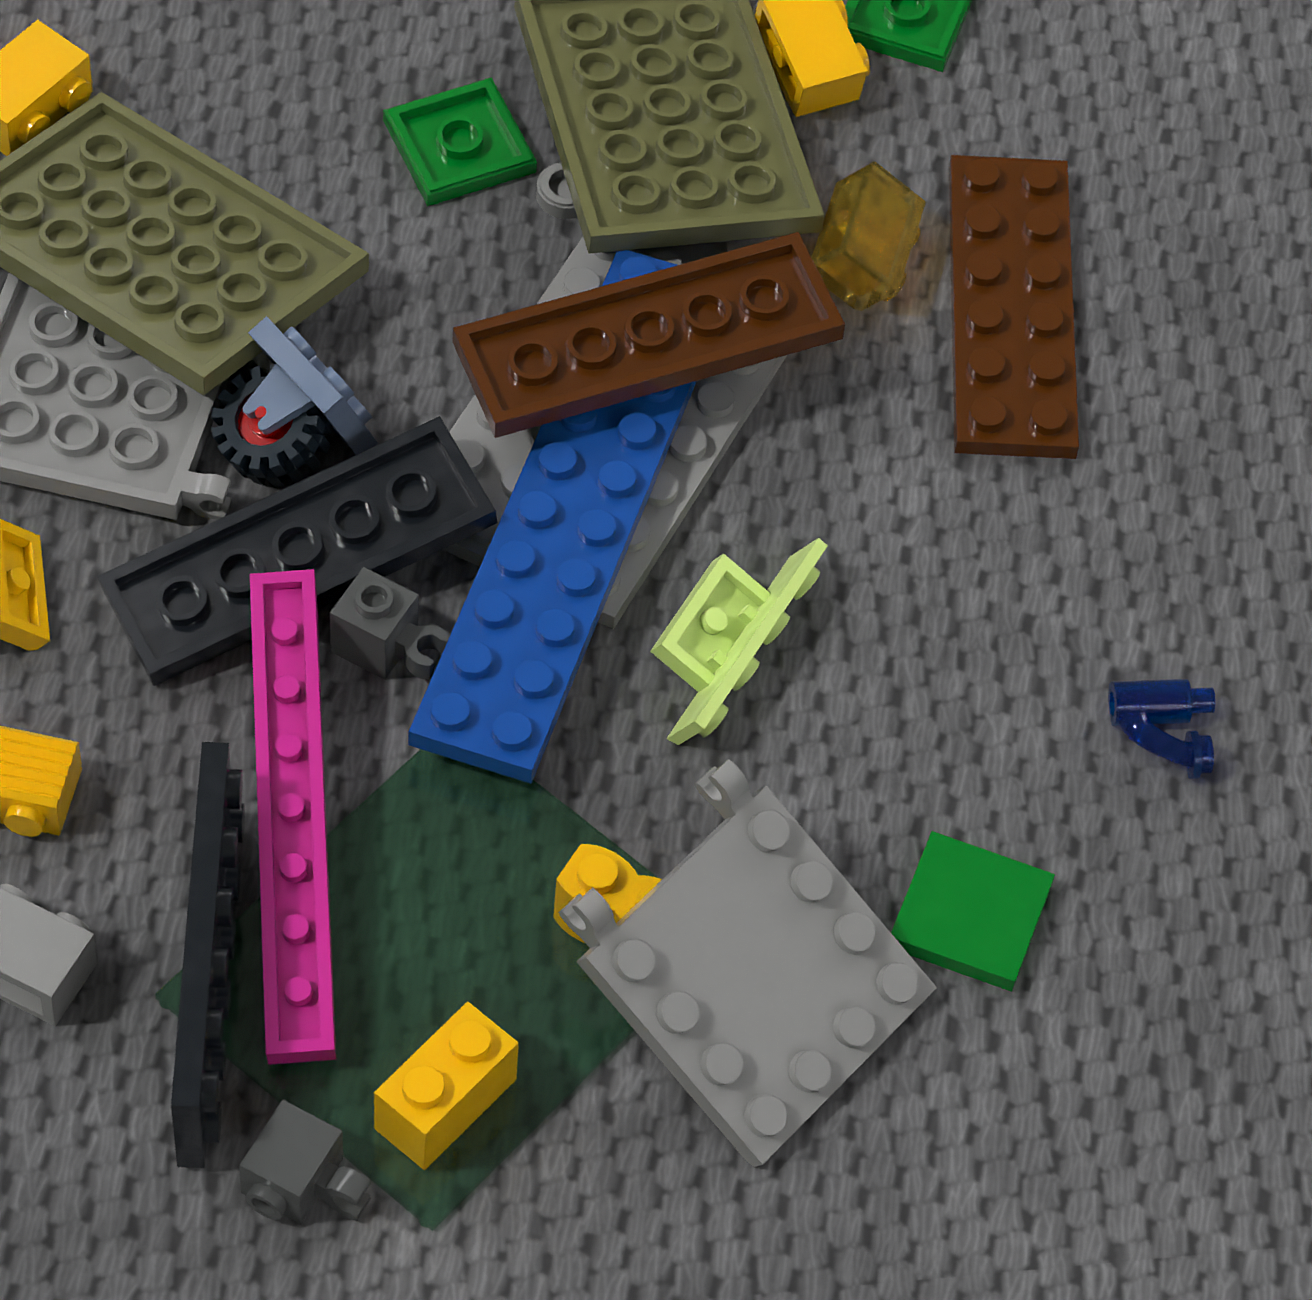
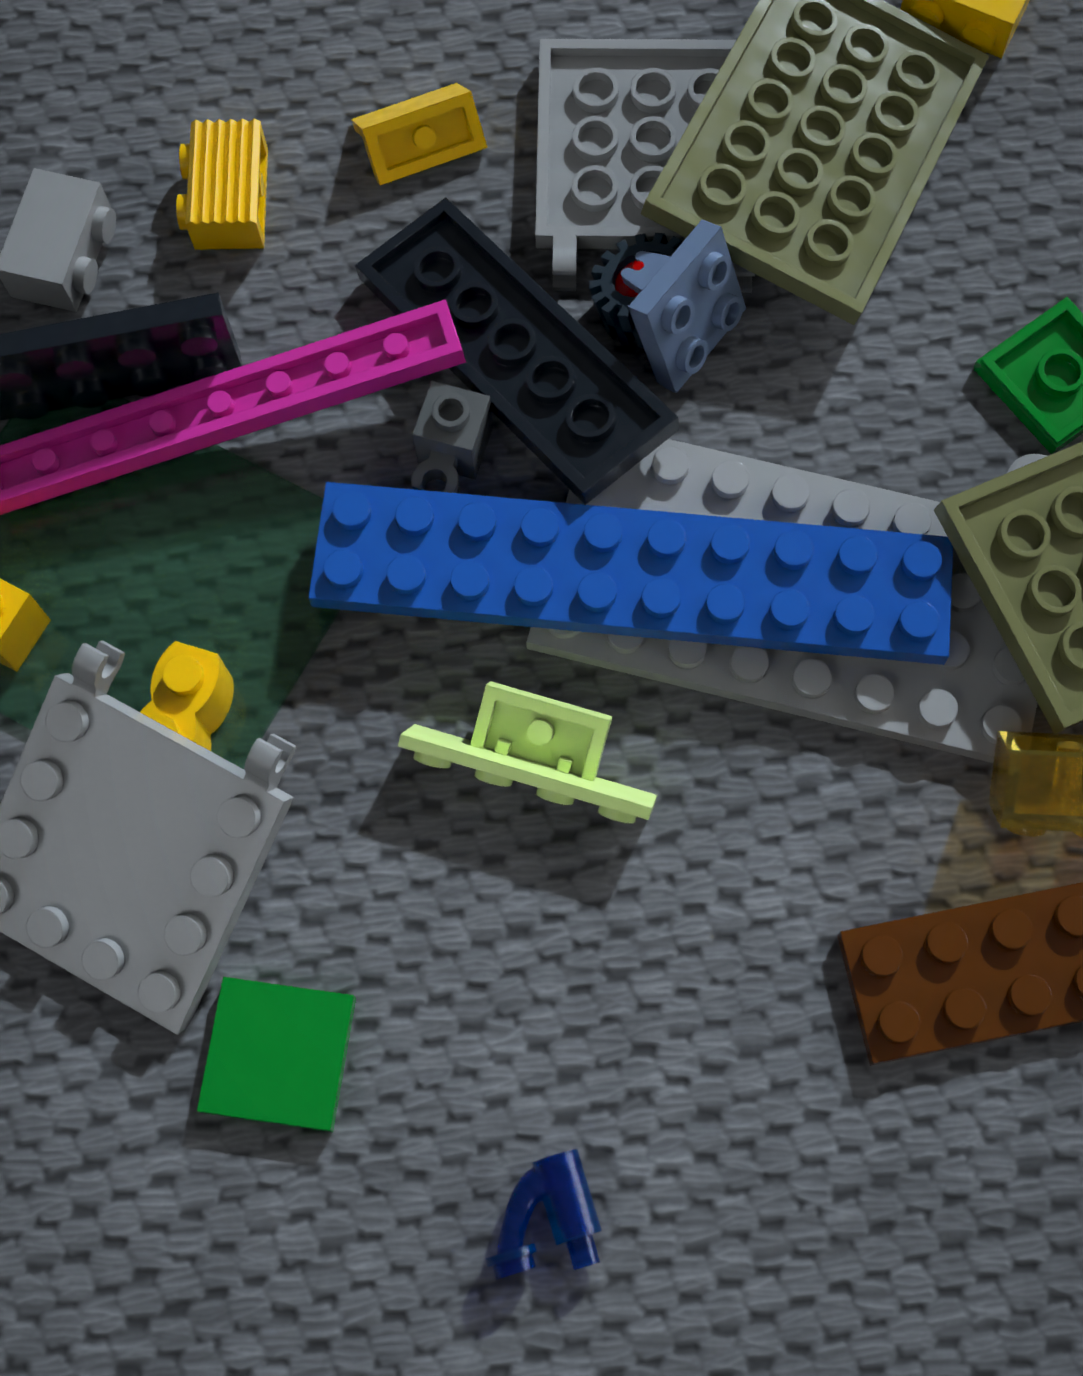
camera: 85 degrees right, 15 degrees up
(647, 334) = (834, 584): reddish brown plate -> none

